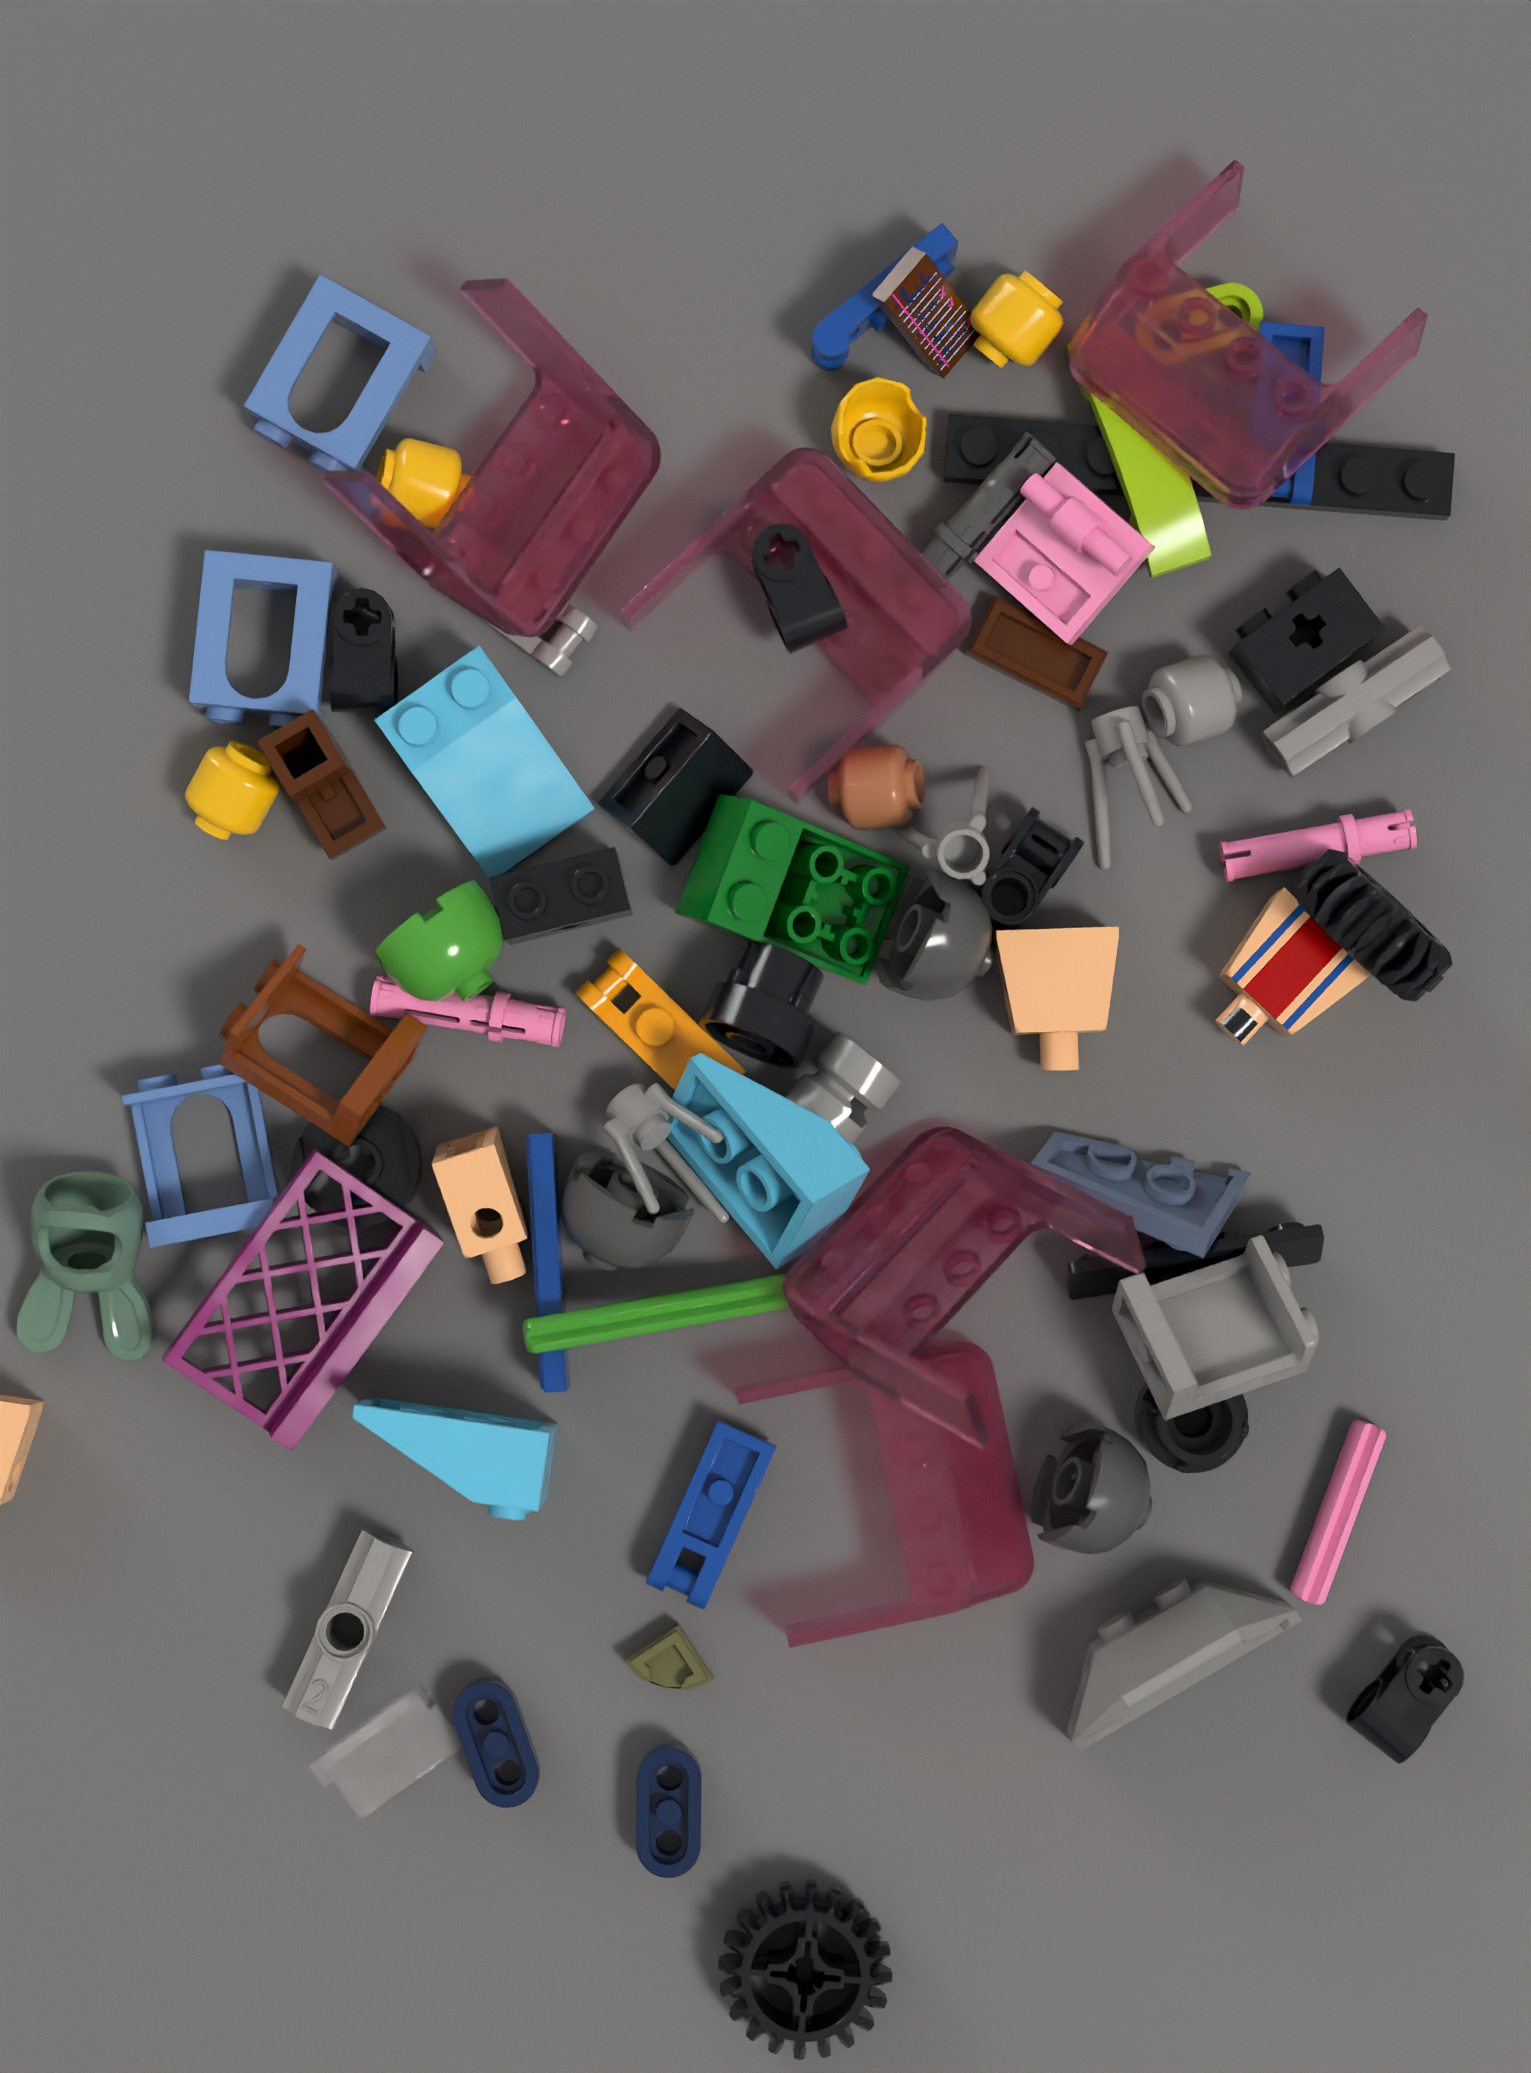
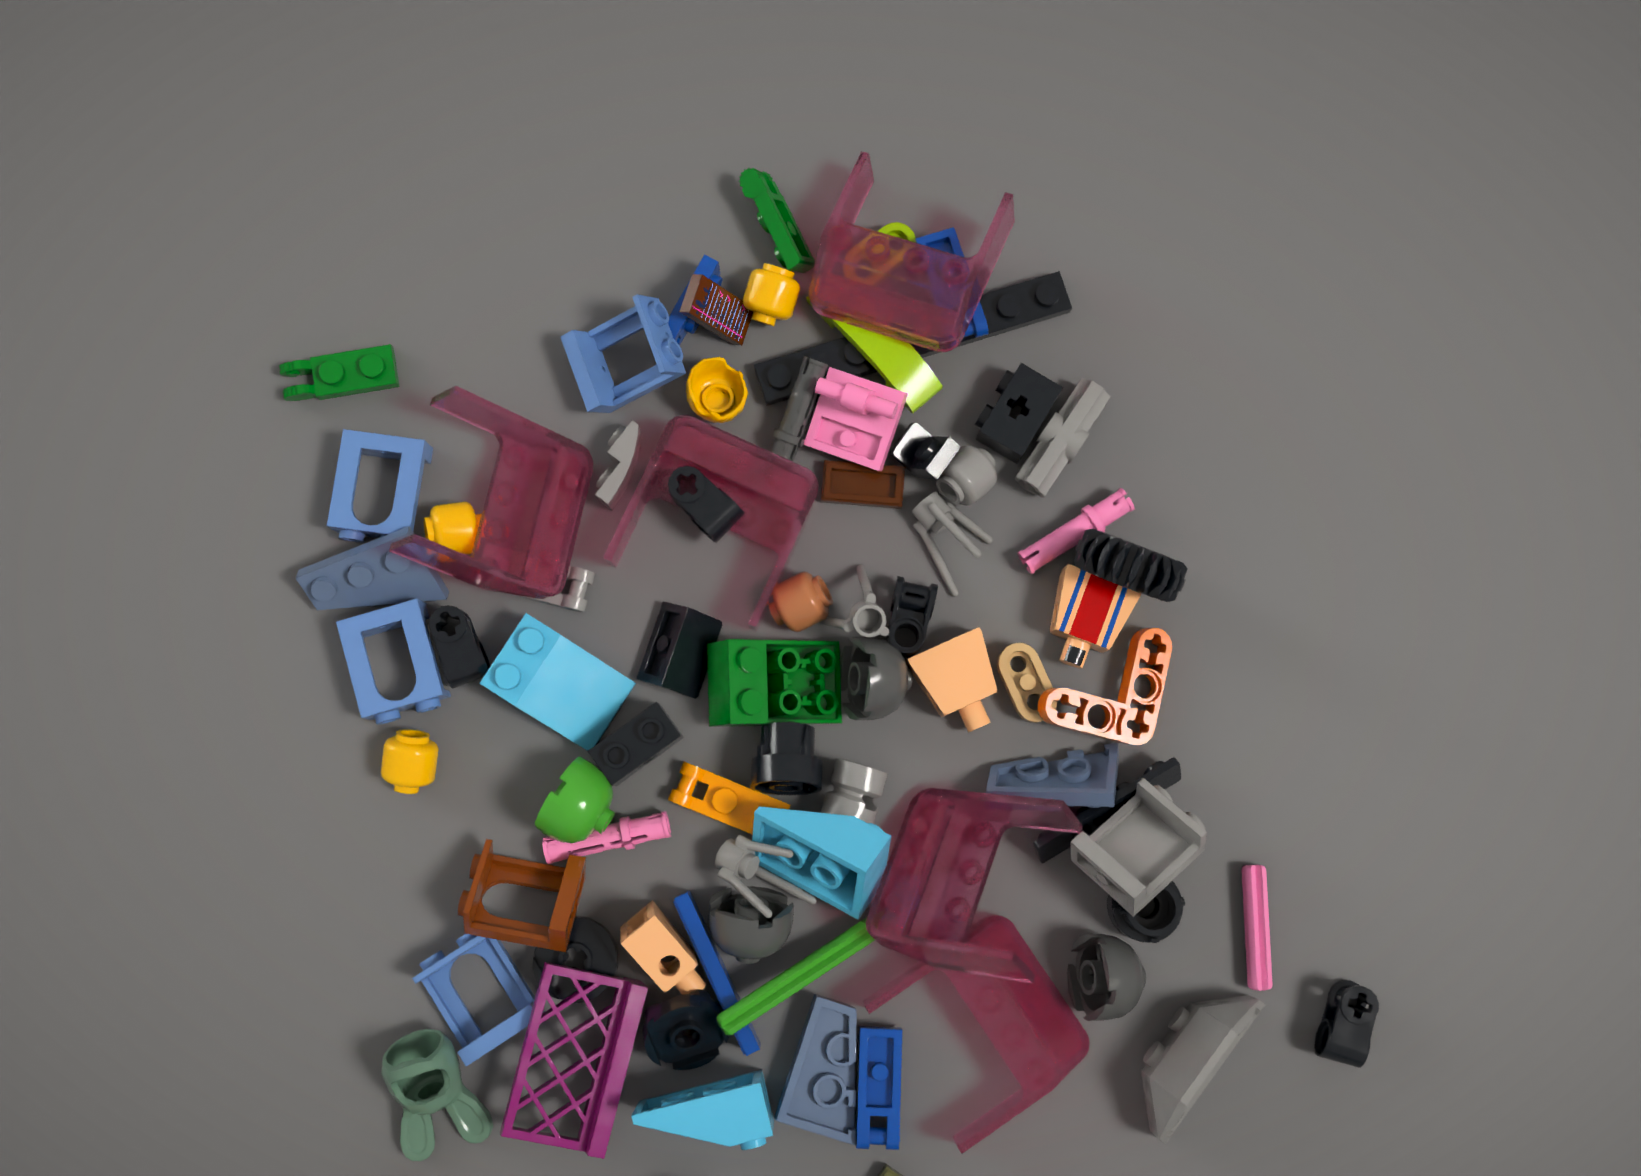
camera: 30 degrees left, 5 degrees down
(277, 505) = (370, 577): none -> sand blue wing
(322, 783) = (462, 734): reddish brown brick -> none
(350, 190) = (343, 373): none -> green hinge
(470, 1295) = (688, 1011): none -> black plate
(637, 1465) = (821, 1078): none -> sand blue wing
(710, 327) = (590, 366): none -> medium blue panel
(711, 469) = (624, 451): none -> light grey slope
(1070, 212) = (777, 220): none -> green hinge
(1142, 641) = (922, 453): none -> black bracket
(1155, 1035) = (1021, 685): none -> tan plate
(1271, 1130) = (1118, 712): none -> beam

